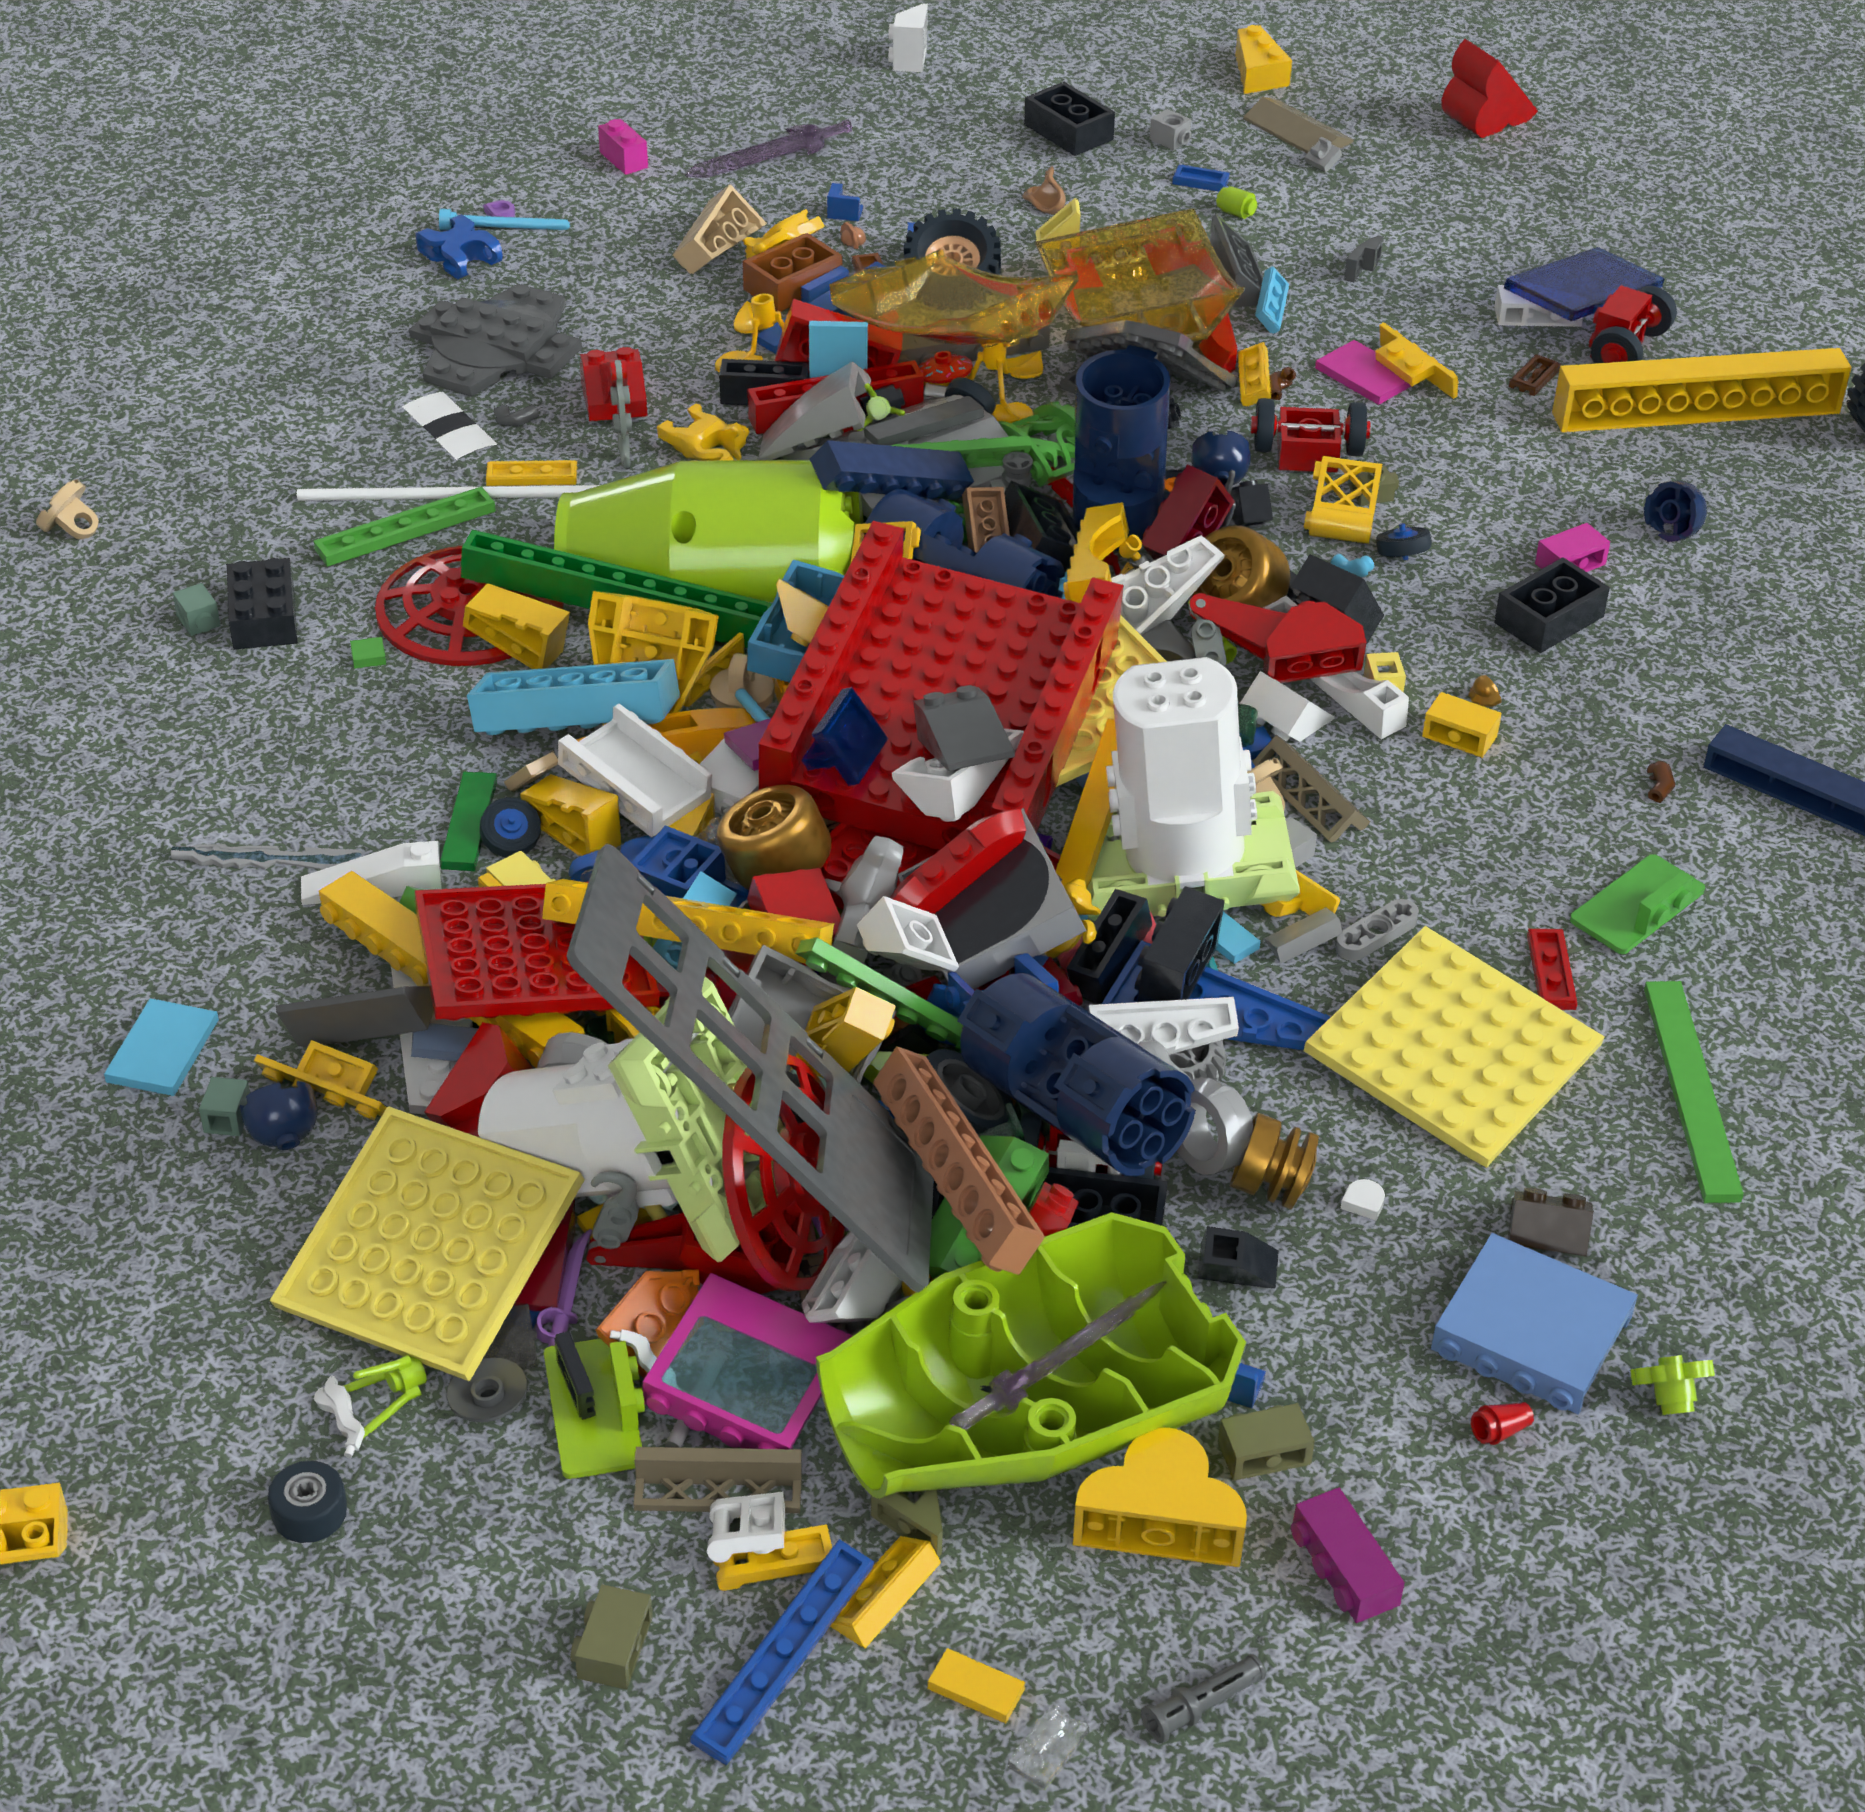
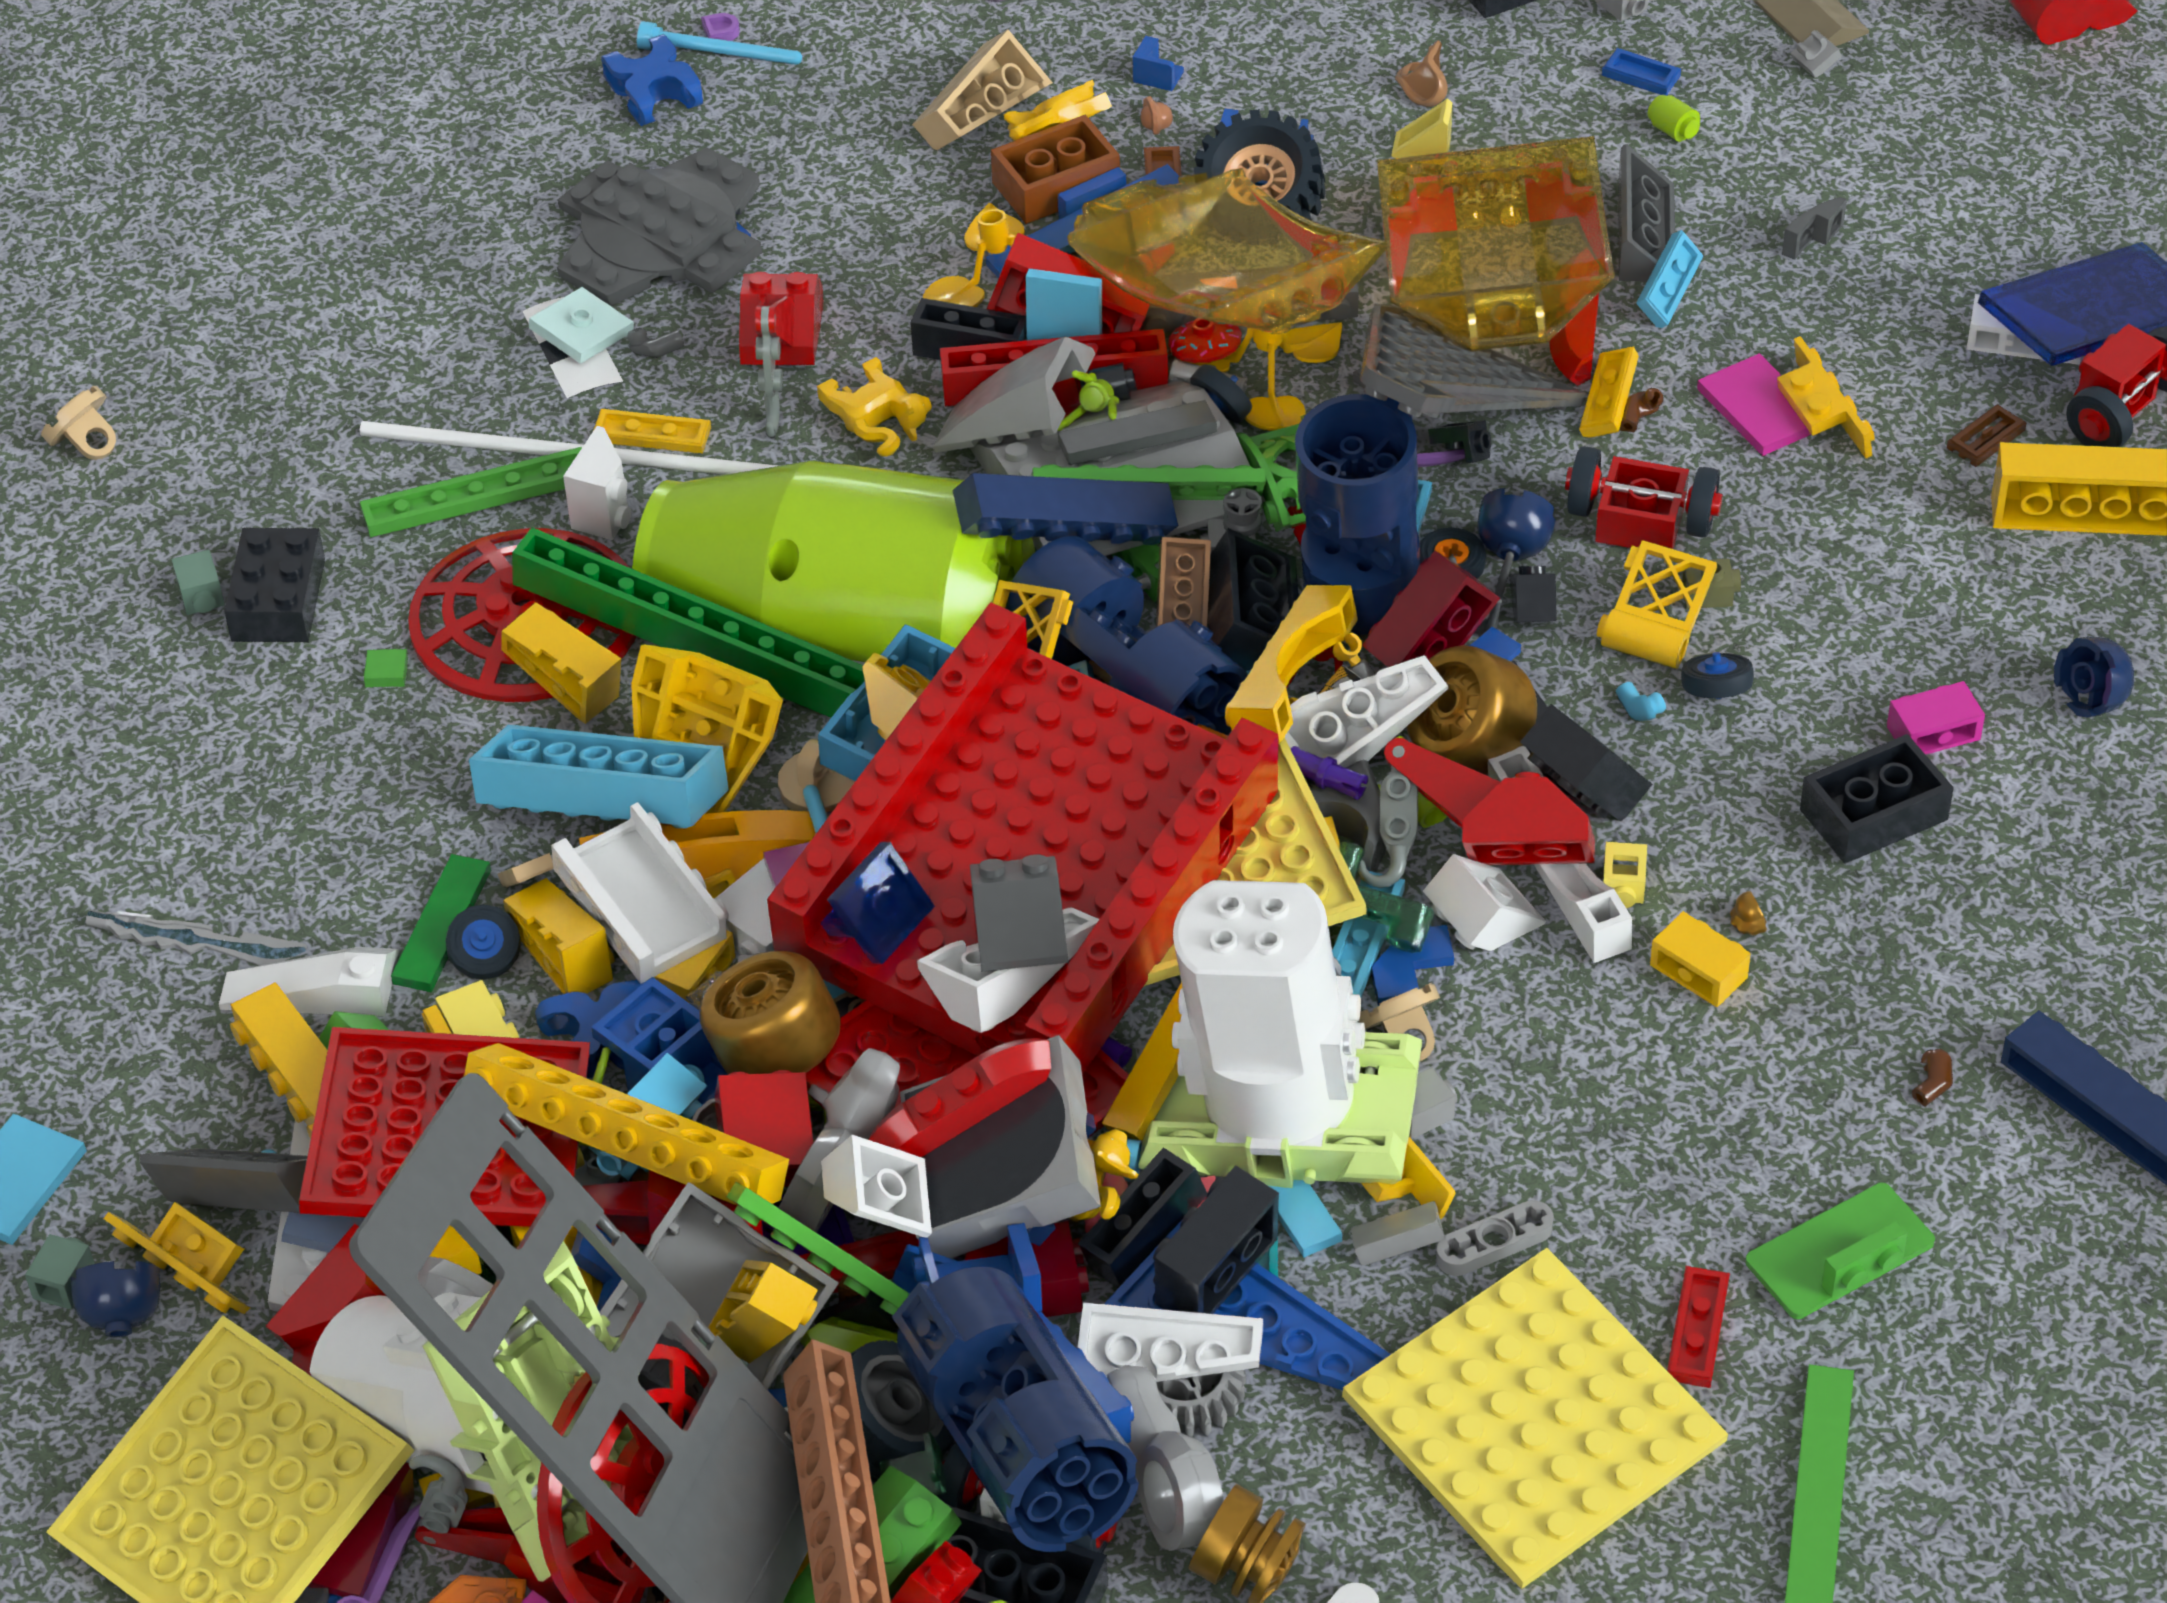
camera: 15 degrees right, 5 degrees up
(453, 408) = (581, 325): none -> light aqua plate
(508, 505) = (597, 488): none -> white slope
(714, 665) = (781, 751): yellow slope -> none
(1152, 629) = (1330, 774): none -> dark purple pin
(1318, 784) = (1488, 1020): dark tan fence -> none

